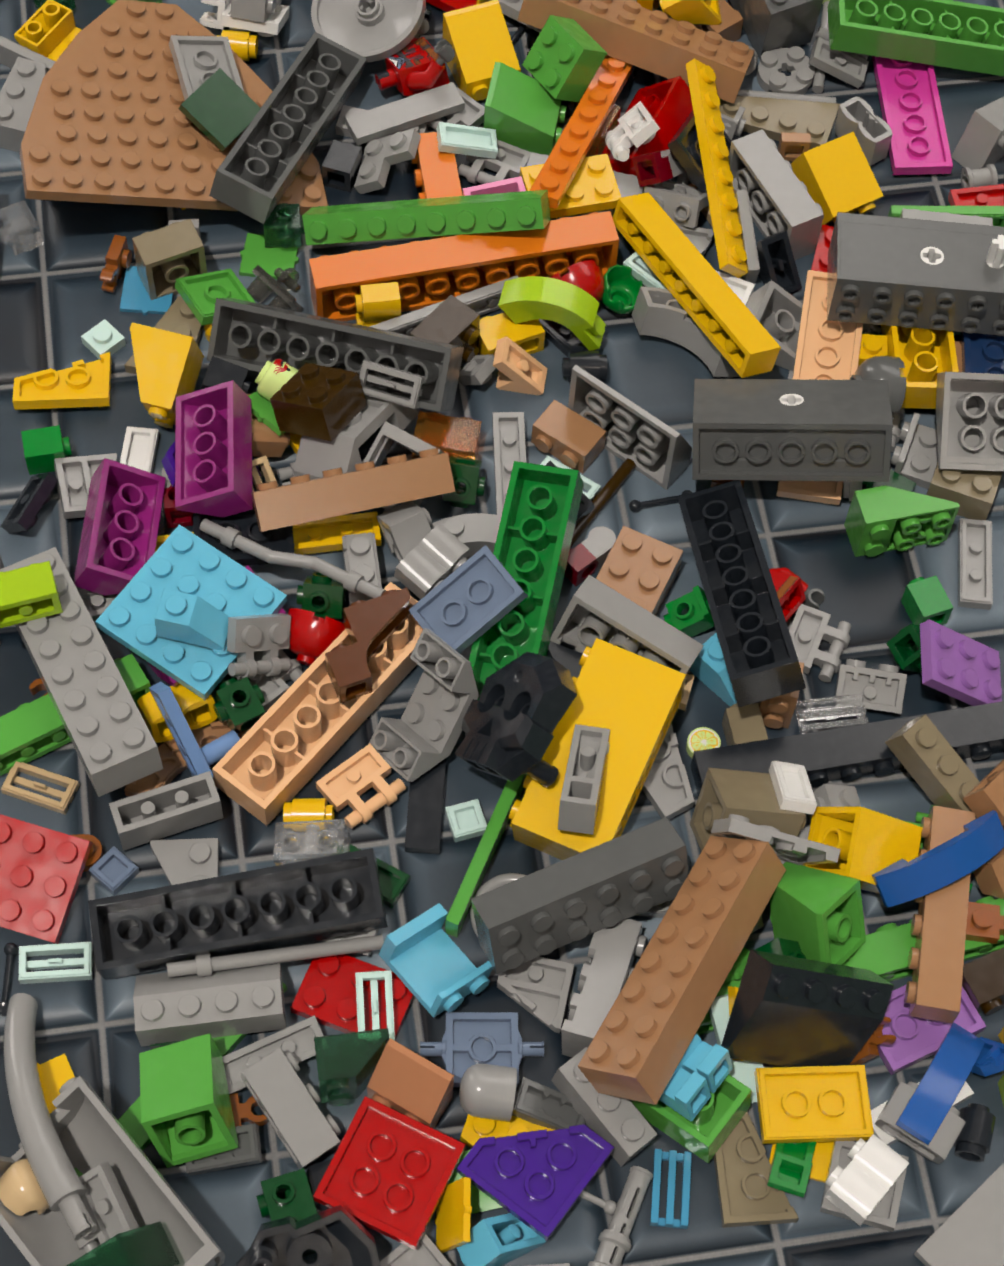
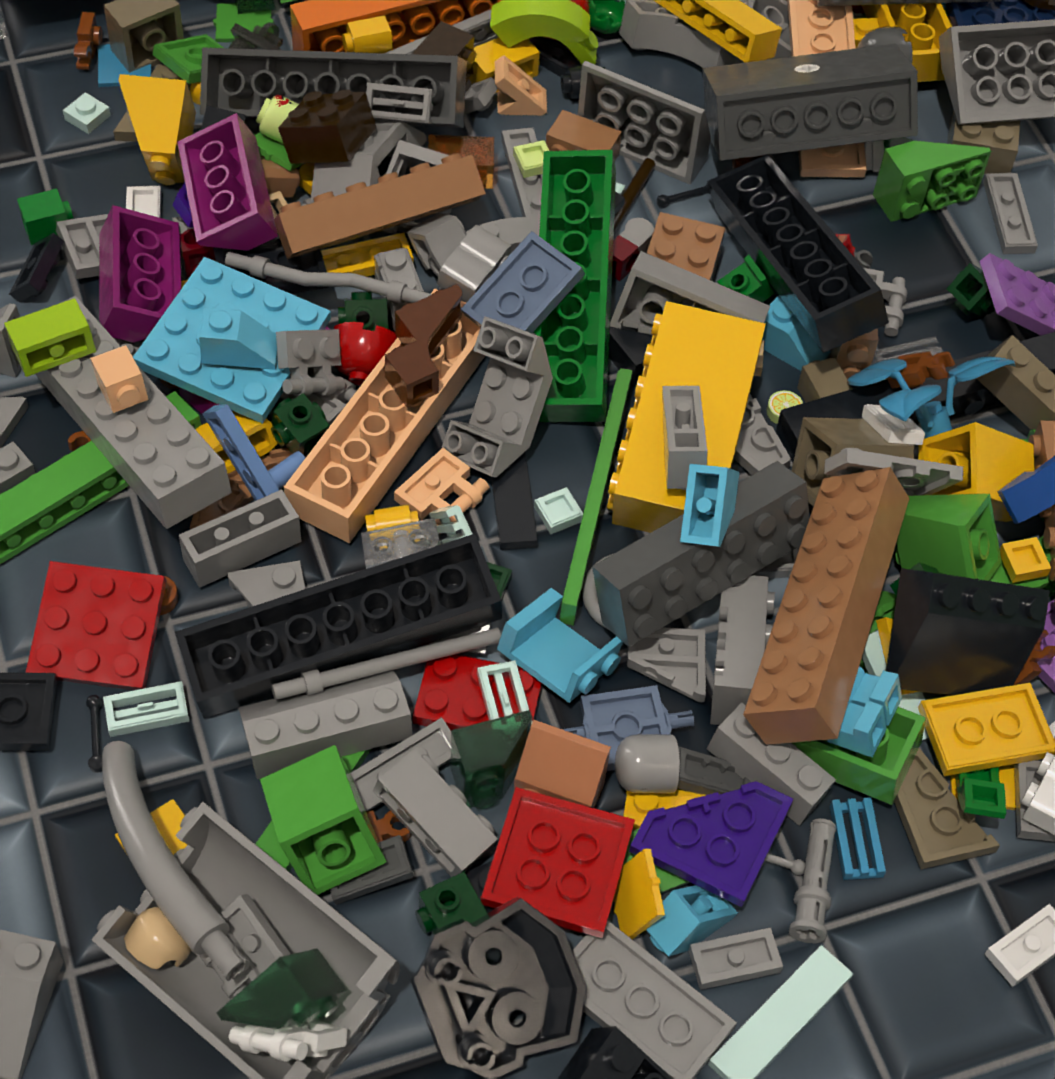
camera: 10 degrees left, 5 degrees down
(65, 797) = (95, 543): tan tile -> none
(68, 388) = (61, 158): yellow wing -> none
(76, 649) = (119, 378): none -> light nougat brick
(114, 871) = (192, 607): sand blue tile -> none
(358, 828) = (451, 527): none -> light aqua tile
(468, 472) = (500, 198): dark green brick -> none
(516, 447) = (530, 158): none -> yellowish green tile
(516, 718) = (602, 388): black brick -> none
(587, 858) = (708, 504): none -> medium azure slope
(831, 729) = (923, 366): none -> dark orange plate
(834, 788) = (932, 415): none -> dark azure plant
(880, 688) = (951, 328): light grey bracket -> none
(886, 943) = (1024, 559): none -> yellow plate
(919, 452) = (933, 118): light grey bracket -> none
(926, 600) = (971, 245): green brick -> none

